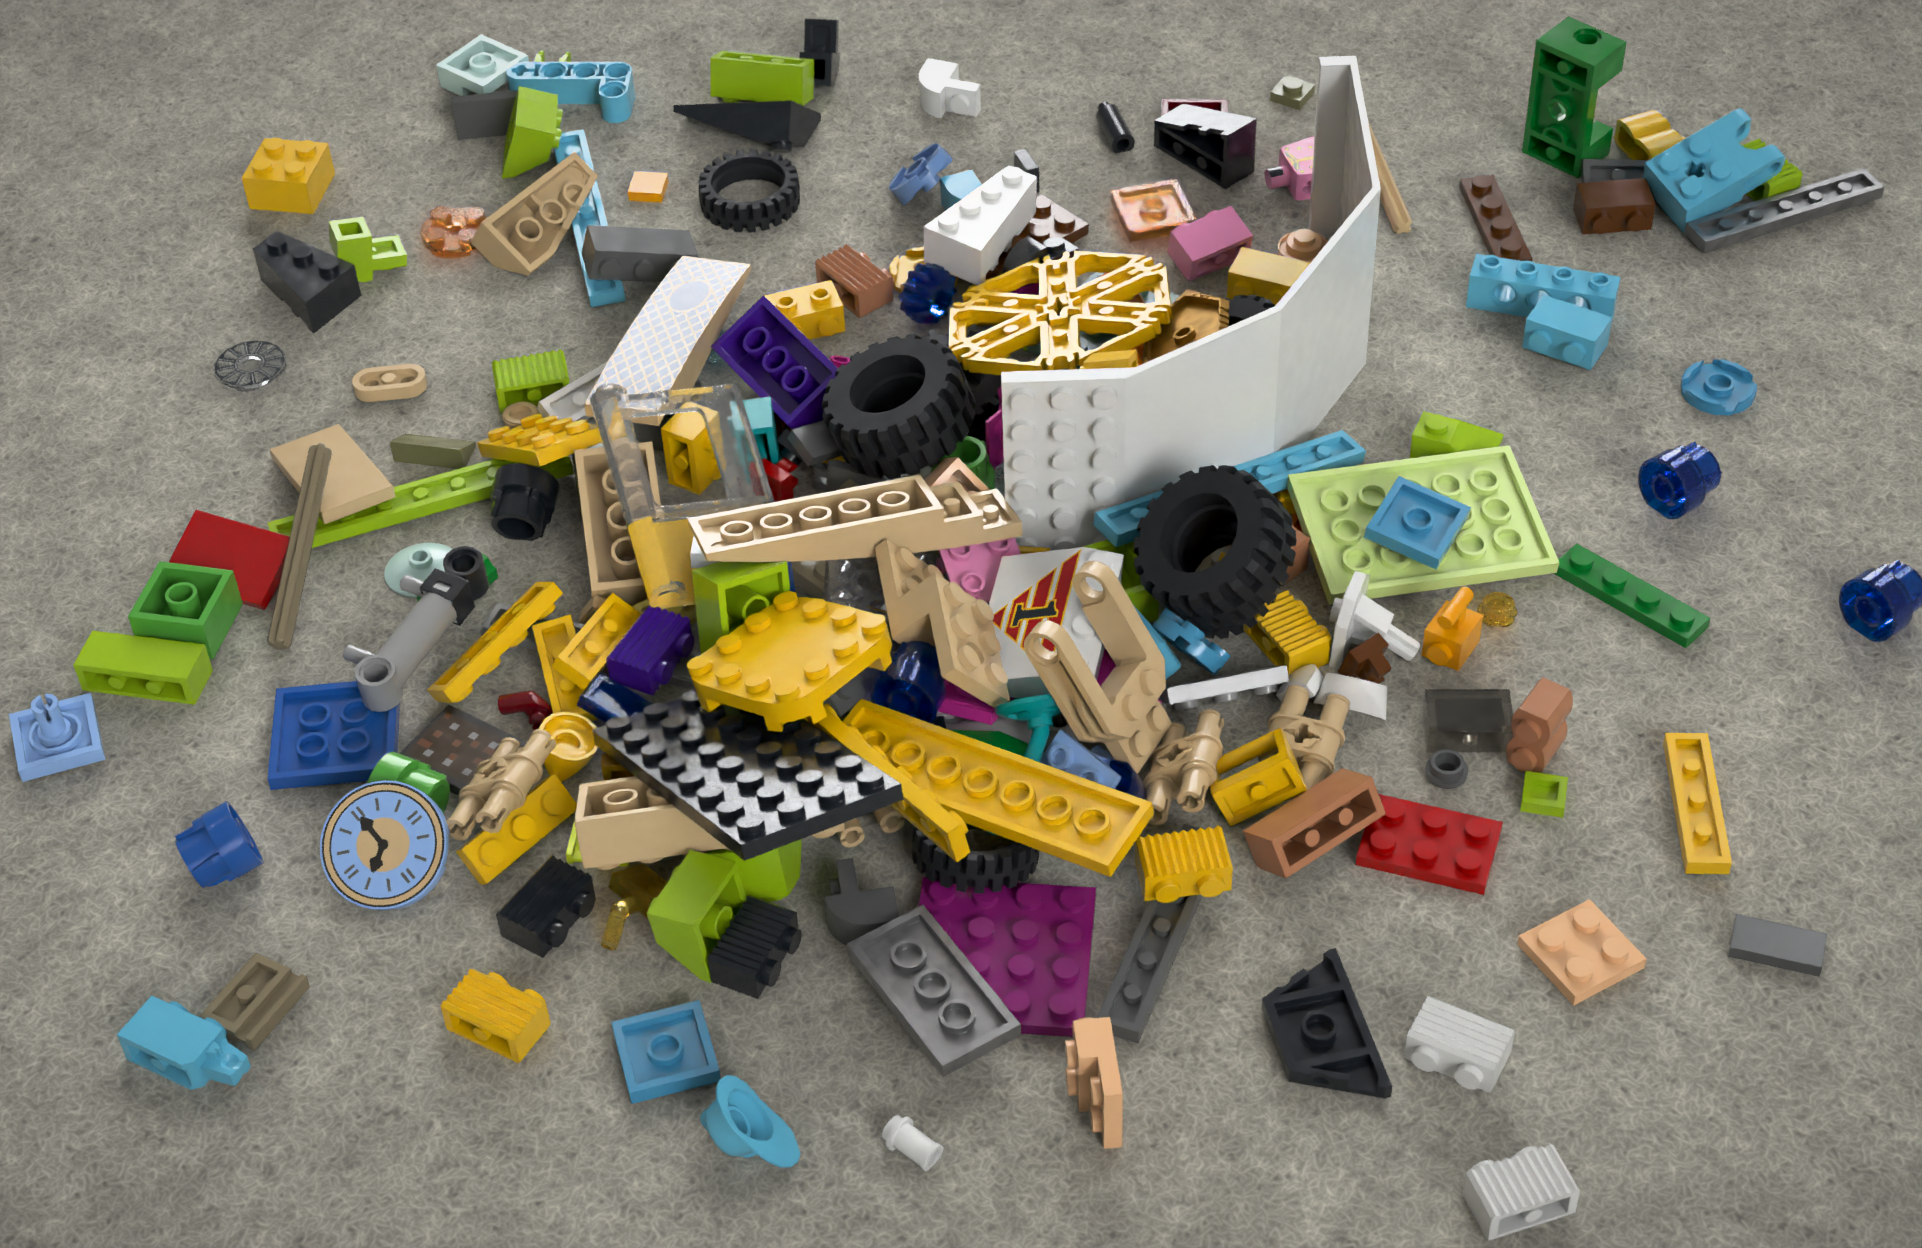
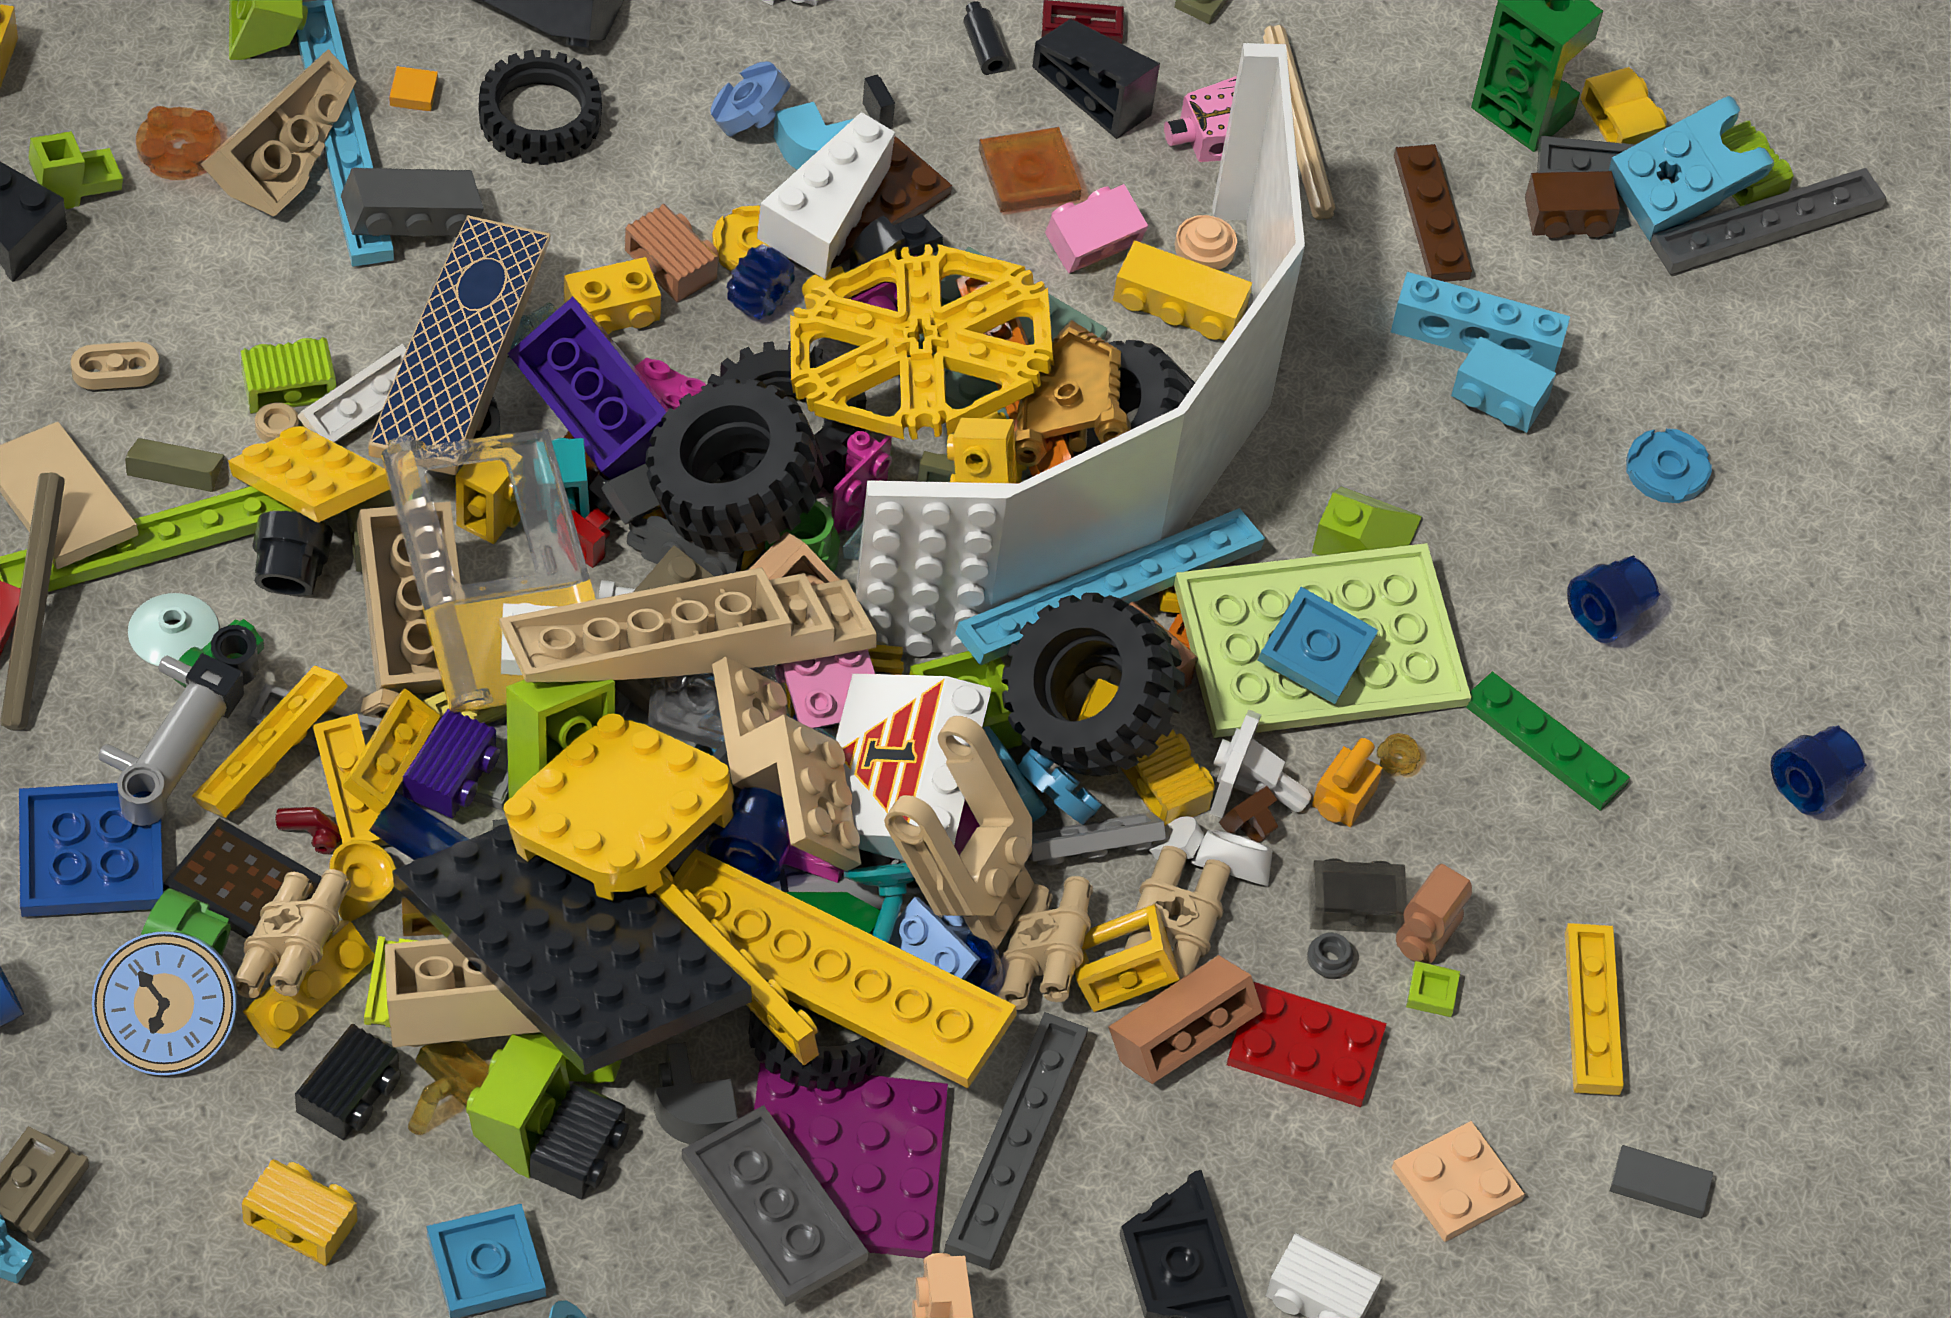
camera: 10 degrees left, 10 degrees up
(1183, 864) = (1044, 1068): yellow brick -> none

